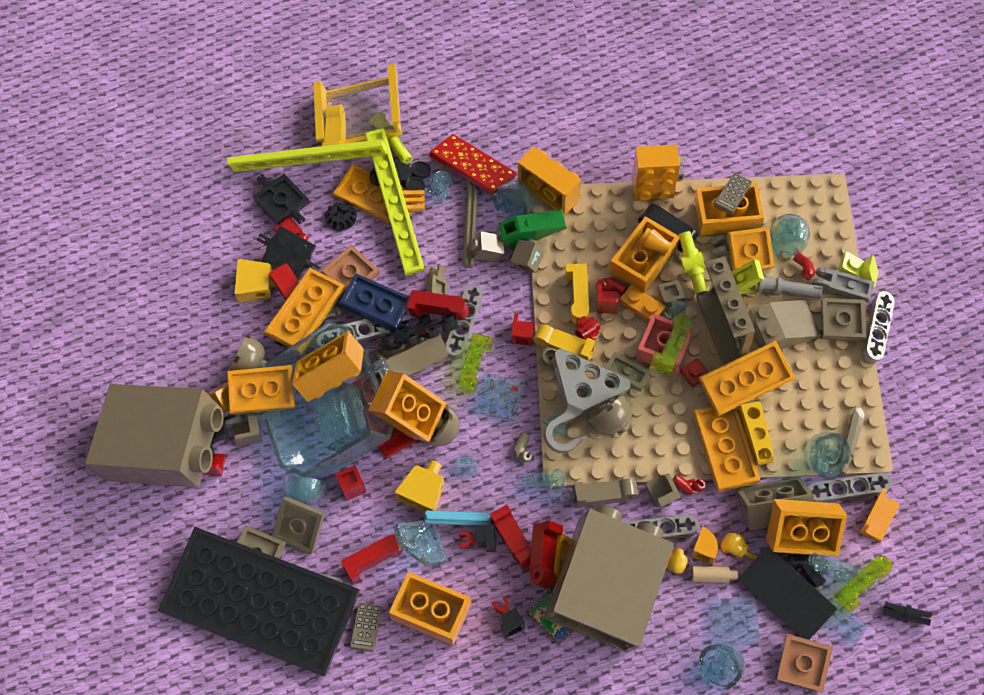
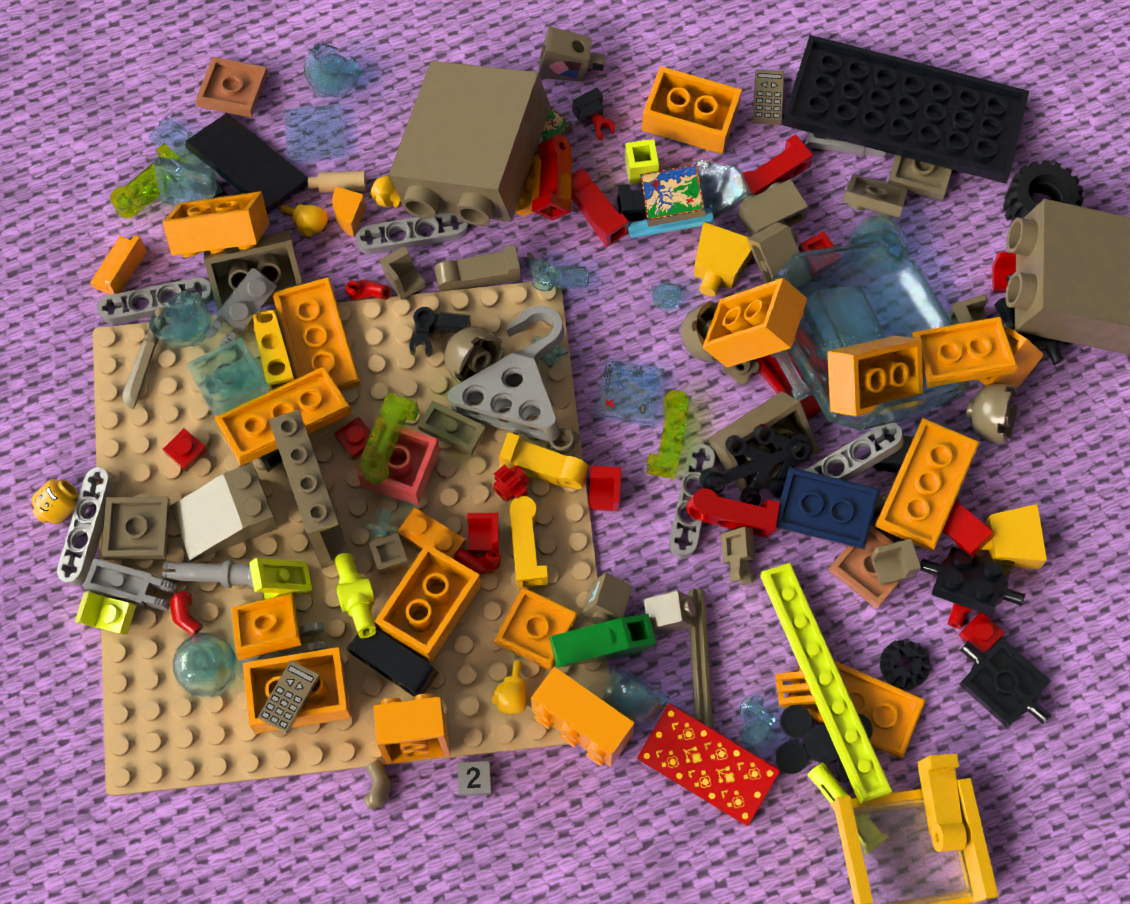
camera: 175 degrees right, 5 degrees up
(160, 502) = (1043, 179): none -> black tyre
(307, 155) = (978, 743): neon yellow tile -> none
(336, 265) = (895, 562): none -> dark tan panel
(377, 522) = (777, 204): none -> dark tan brick
(380, 477) = (773, 249): none -> dark tan brick
(453, 532) = (672, 195): none -> tile
(474, 566) = (640, 159): none -> neon yellow brick
(520, 449) = (595, 322): dark tan arm -> none
(534, 665) = (567, 56): none -> dark tan torso
(574, 244) = (531, 624): none -> light orange tile
(591, 206) = (511, 694): none -> yellow piece
(616, 169) = (474, 778): none -> light grey tile
(643, 451) = (427, 321): none -> black bar
(654, 241) = (413, 600): light orange cone -> none
(783, 467) = (242, 305): none -> light grey hinge
(787, 407) = (227, 377): none -> clear light blue brick
(815, 372) = (185, 449): none -> red plate
(902, 344) = (54, 501): none -> yellow head
(907, 613) = (99, 152): black pin -> none

